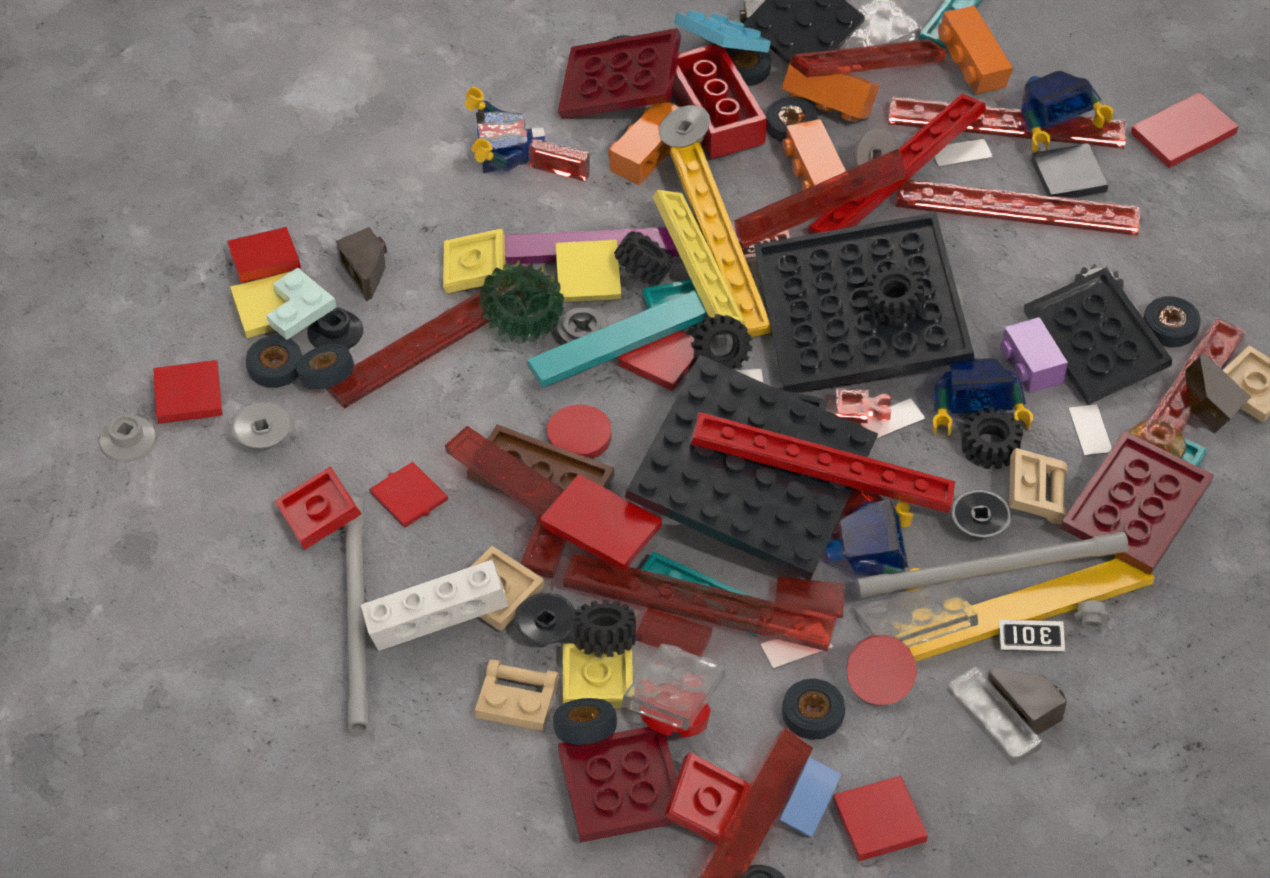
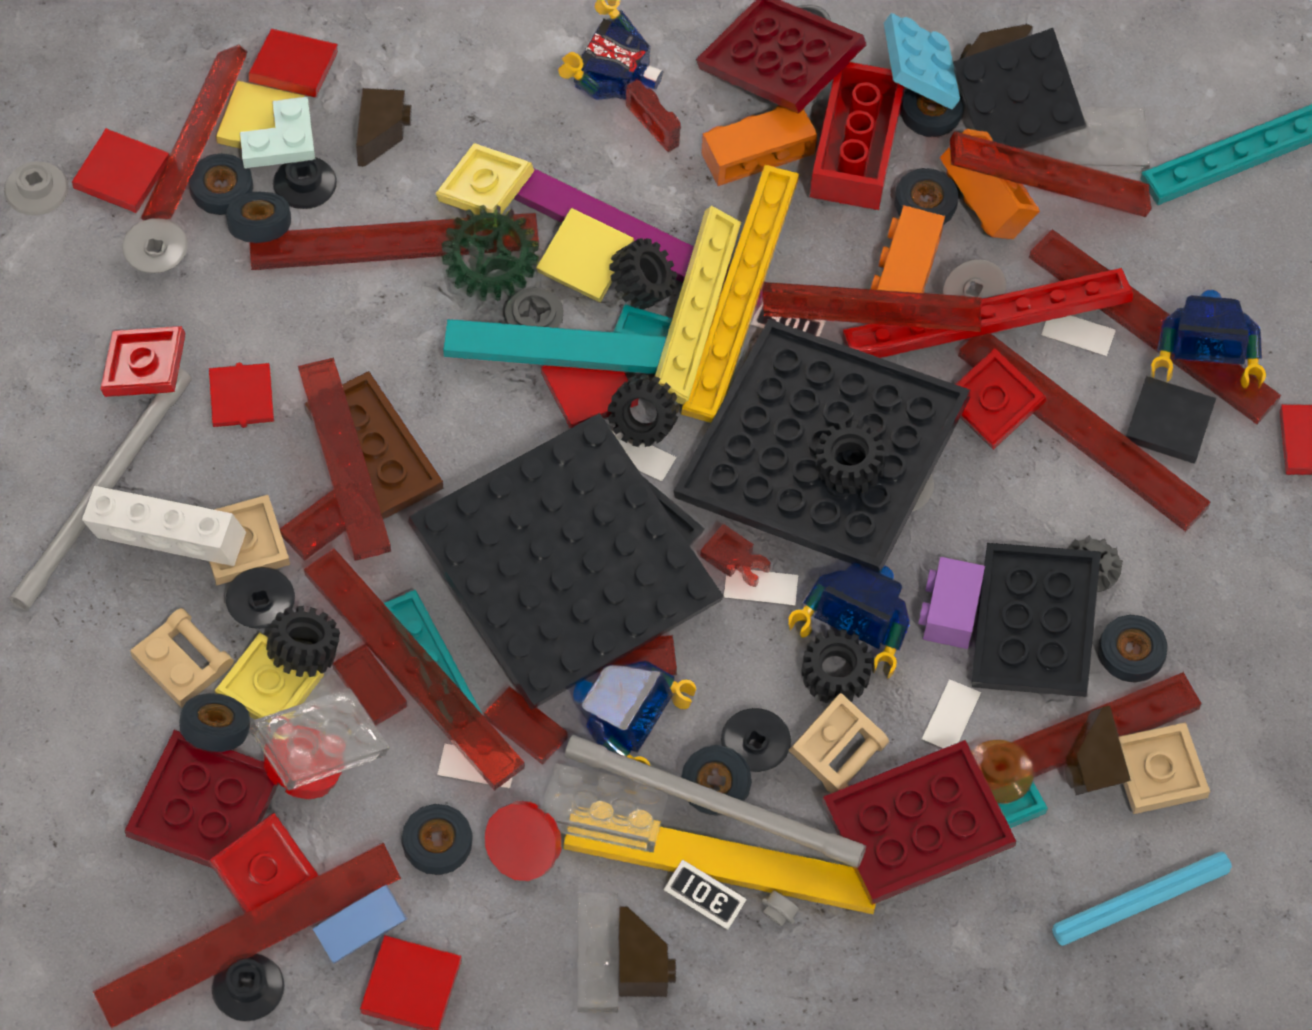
camera: 30 degrees right, 10 degrees up
(227, 337) = (195, 134): none -> clear red tile
(580, 430) = (445, 423): tile -> none
(601, 522) = (374, 533): red tile -> none
(684, 126) = (793, 149): light grey piece -> none
(823, 462) = (632, 597): red tile -> none
(956, 213) = (998, 398): none -> red tile
(975, 49) = (1179, 223): orange brick -> none
(982, 538) = (729, 765): none -> black bush

